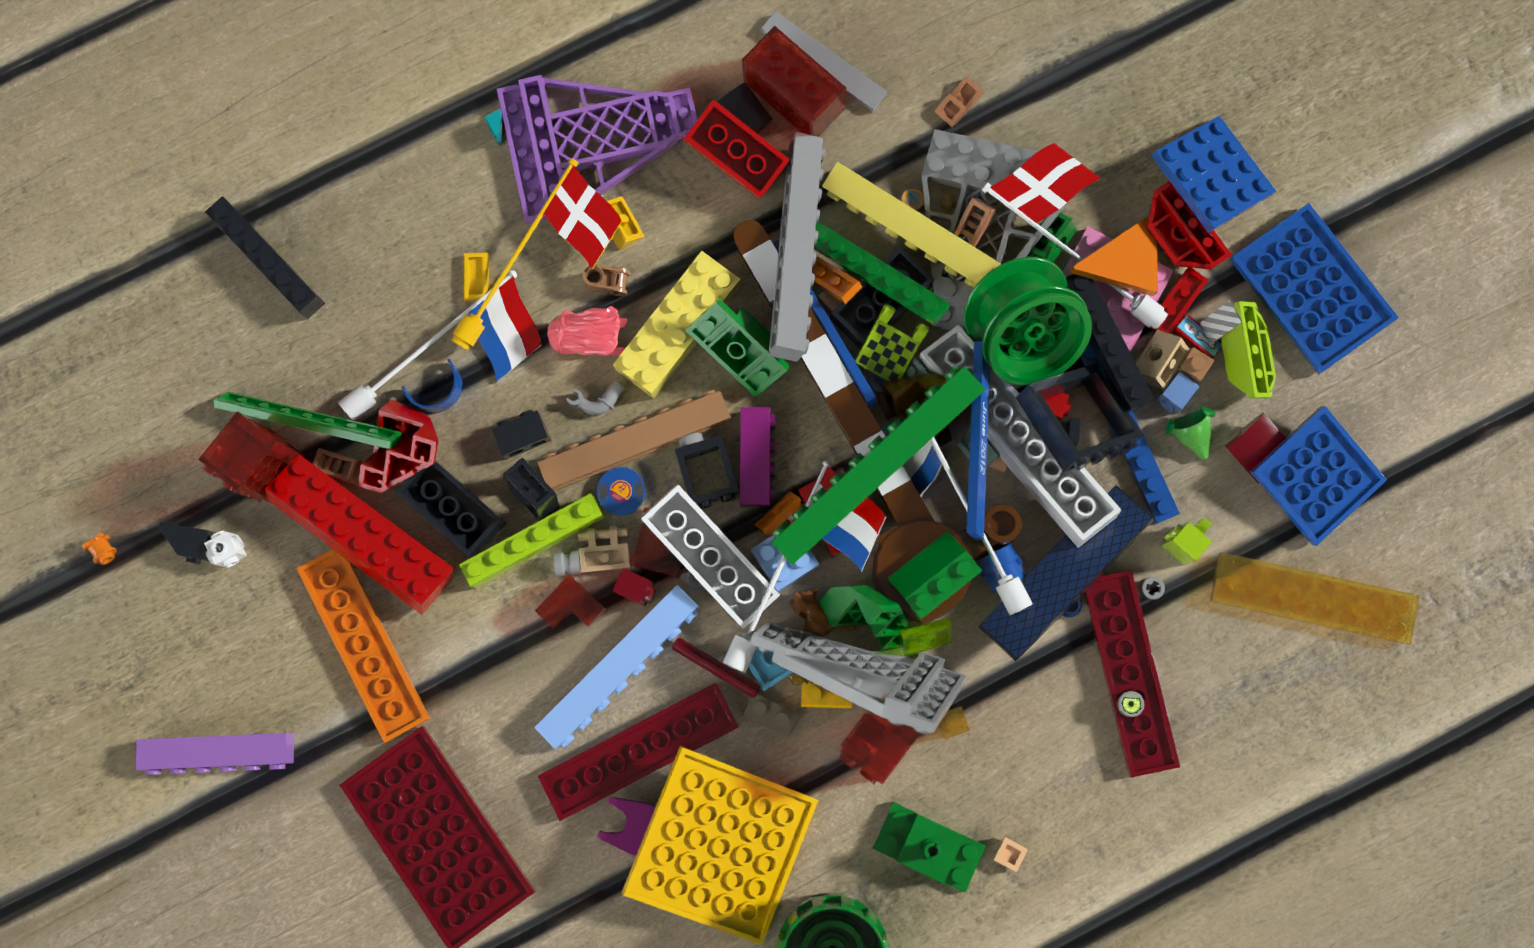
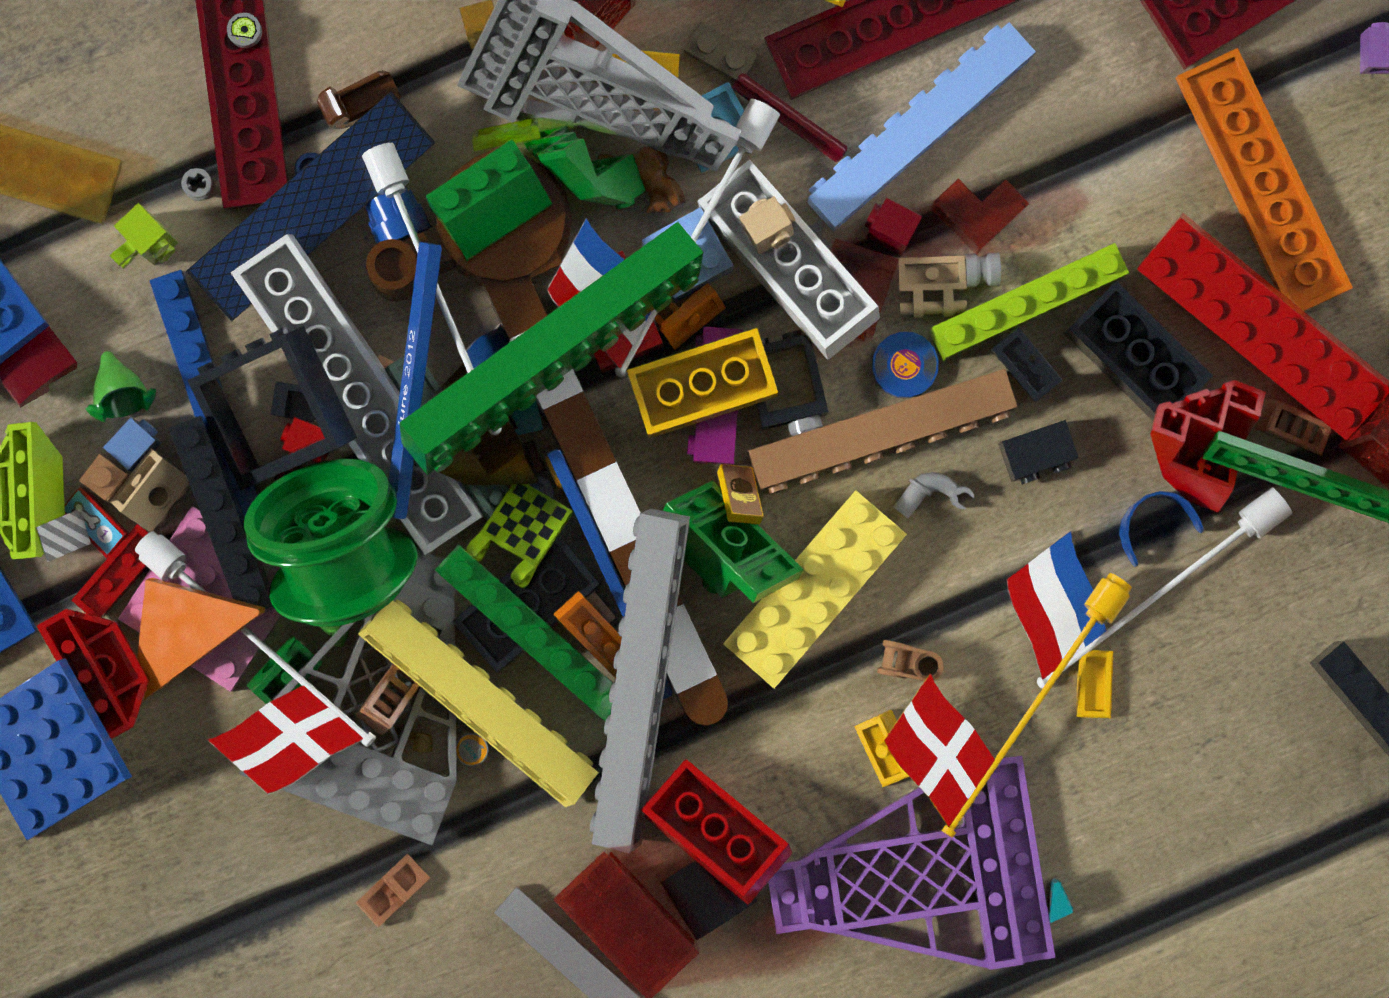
camera: 175 degrees right, 5 degrees up
(587, 332) = (940, 583): coral hair -> none
(725, 575) = (768, 224): none -> tan brick
(734, 385) = (740, 494): none -> tile
(766, 457) = (703, 383): none -> yellow brick
(1039, 657) = (348, 105): none -> reddish brown animal

